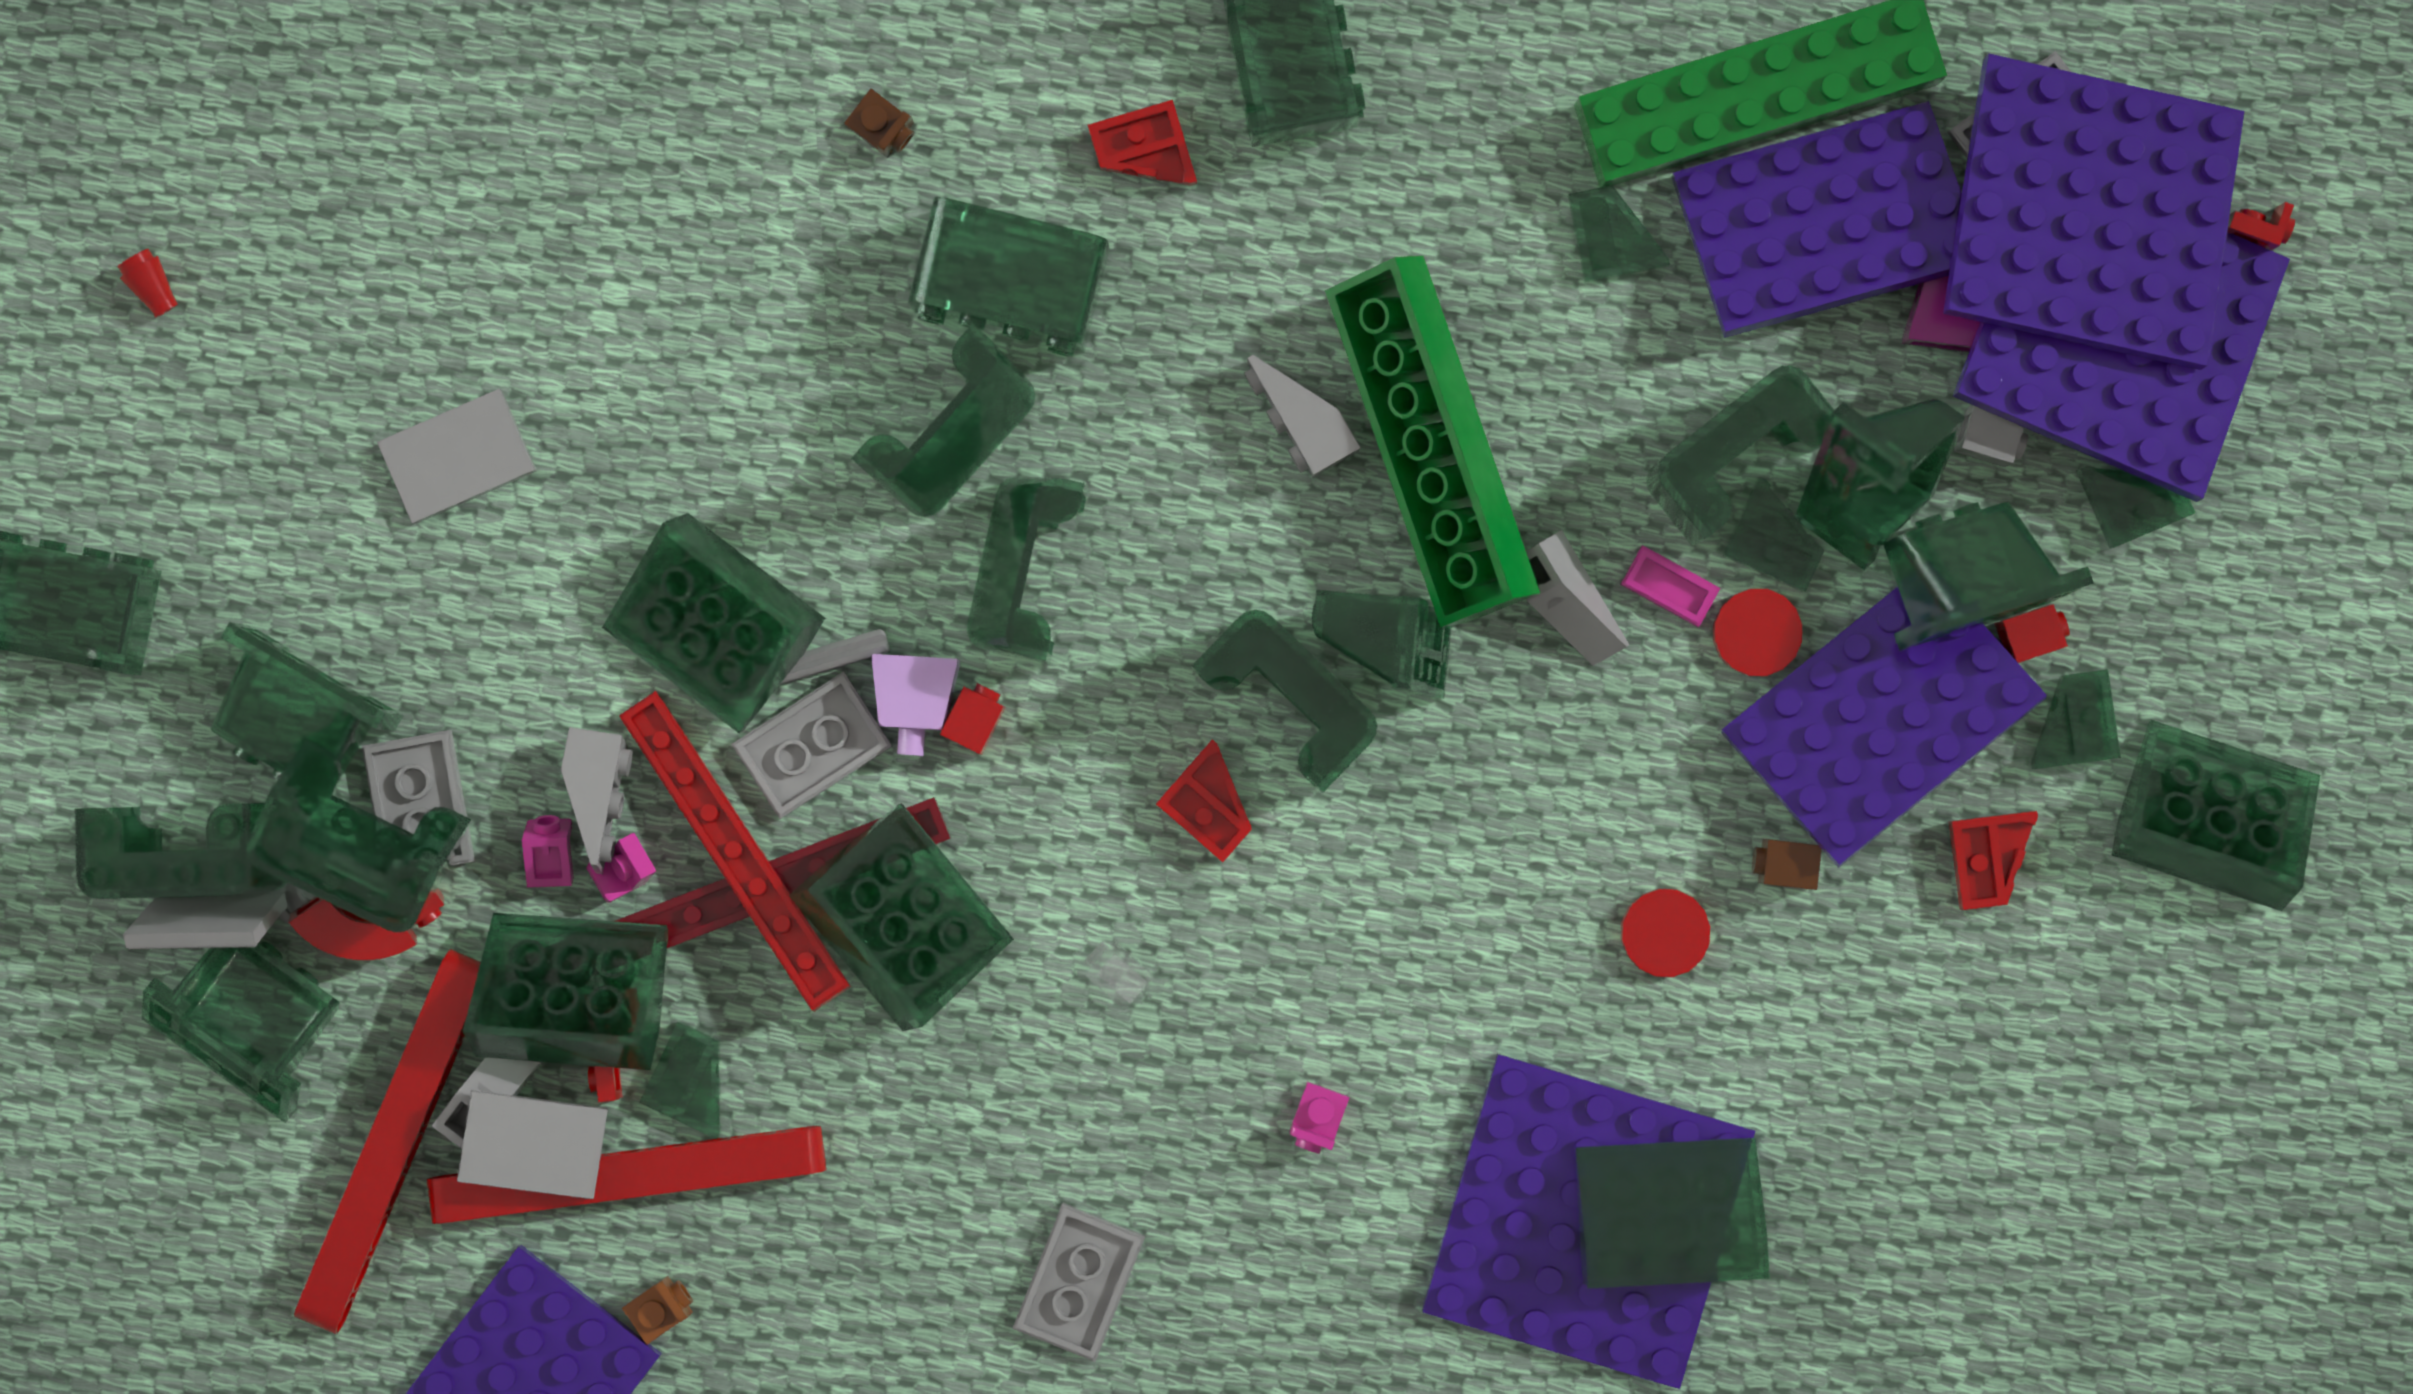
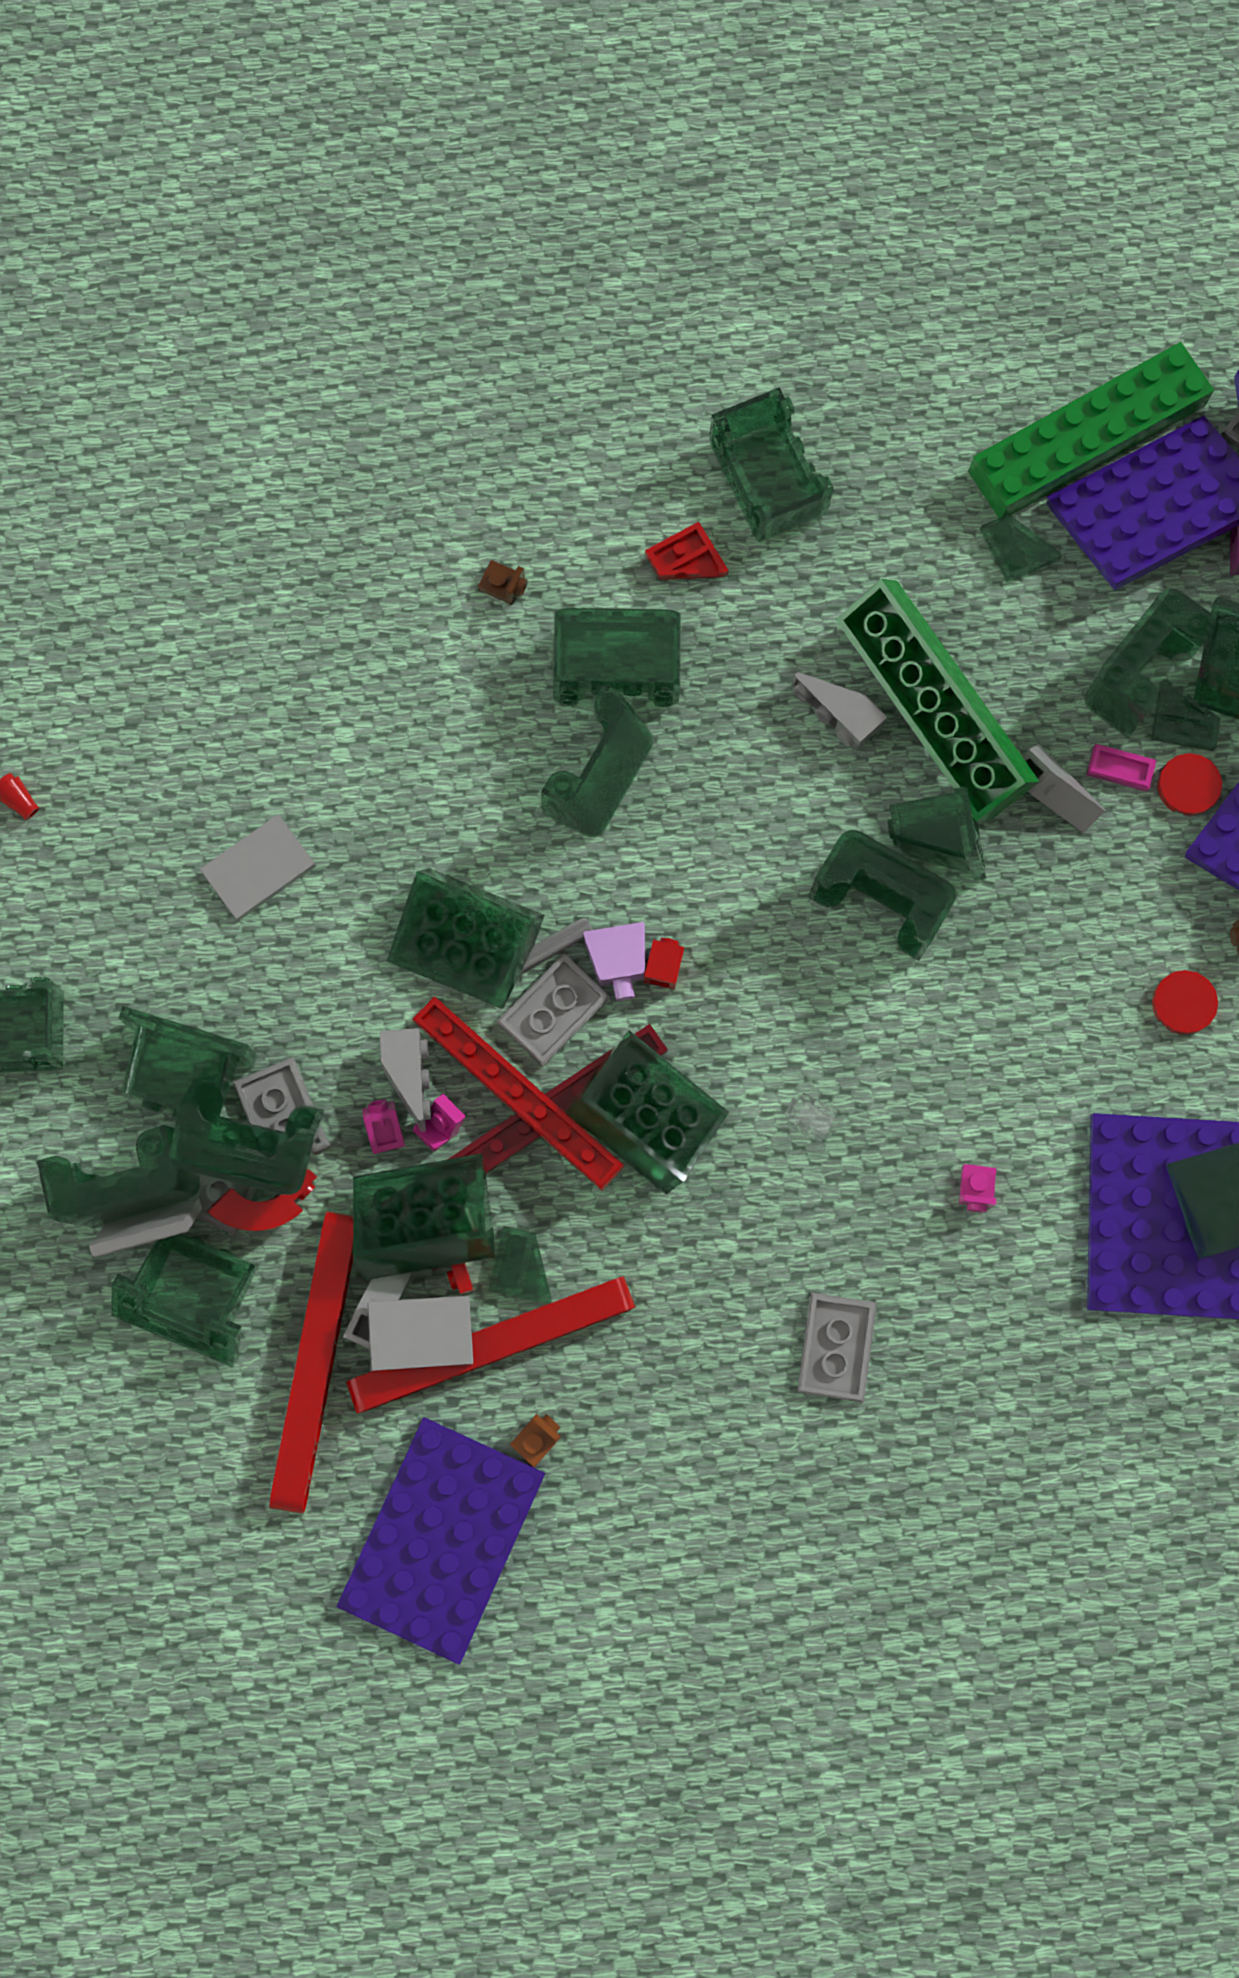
camera: 20 degrees left, 10 degrees down
(995, 611) = (667, 885): clear green windscreen -> none
(1208, 804) = (842, 986): red wing -> none

